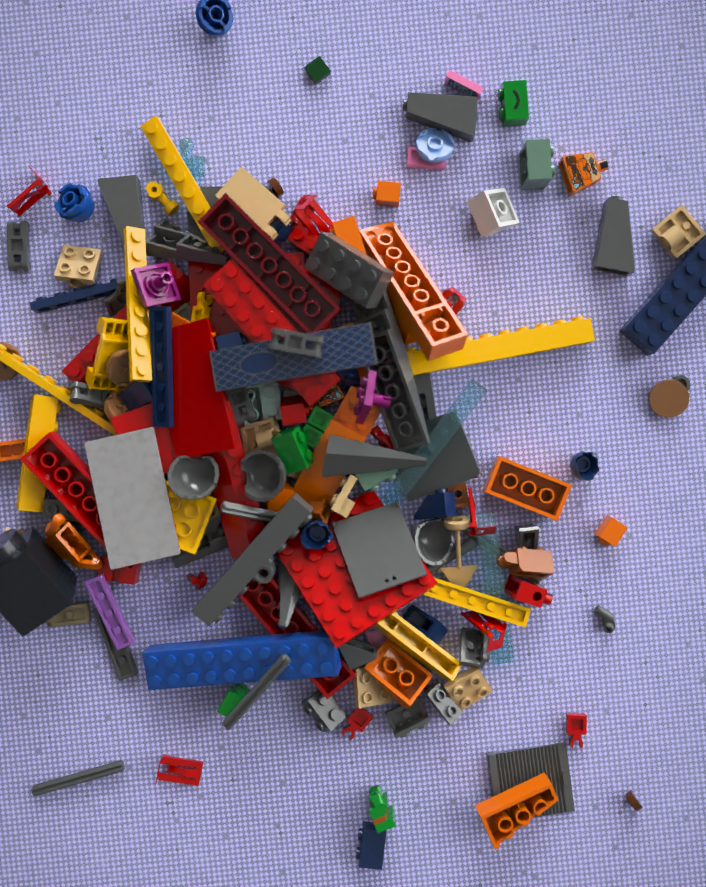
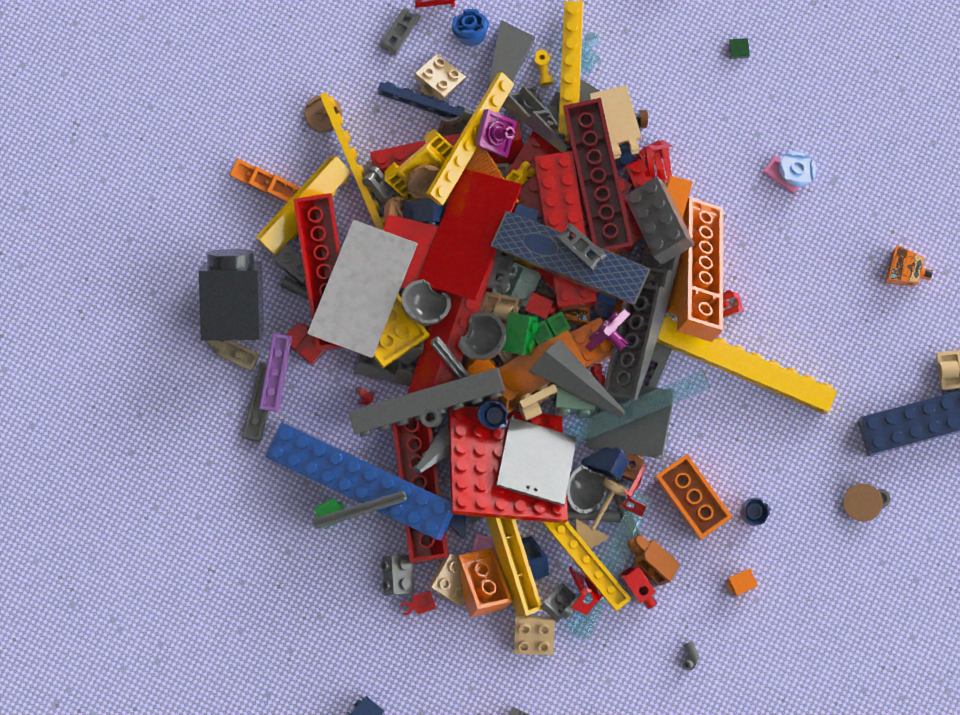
camera: 25 degrees right, 10 degrees down
(70, 544) = (281, 293): orange torso -> none
(78, 778) = (150, 496): dark grey axle -> none
(162, 366) = (457, 200): dark blue plate -> none
(190, 773) = (248, 554): red piece -> none
(358, 653) = (460, 538): dark grey slope -> none
(381, 814) = (390, 686): green hips -> none
(387, 193) = (732, 182): orange brick -> none
(404, 721) = (462, 626): dark grey bracket -> none
(442, 702) = (504, 632): bracket -> none
(445, 112) = (821, 147): dark grey slope -> none
(463, 85) = (852, 136): bright pink tile -> none
(492, 211) = (811, 253): white slope -> none
(513, 103) = (884, 177): green brick -> none
(527, 535) = (668, 538): dark grey slope -> none
(536, 164) = (869, 239): sand green brick -> none
(614, 239) = (897, 343): dark grey slope -> none

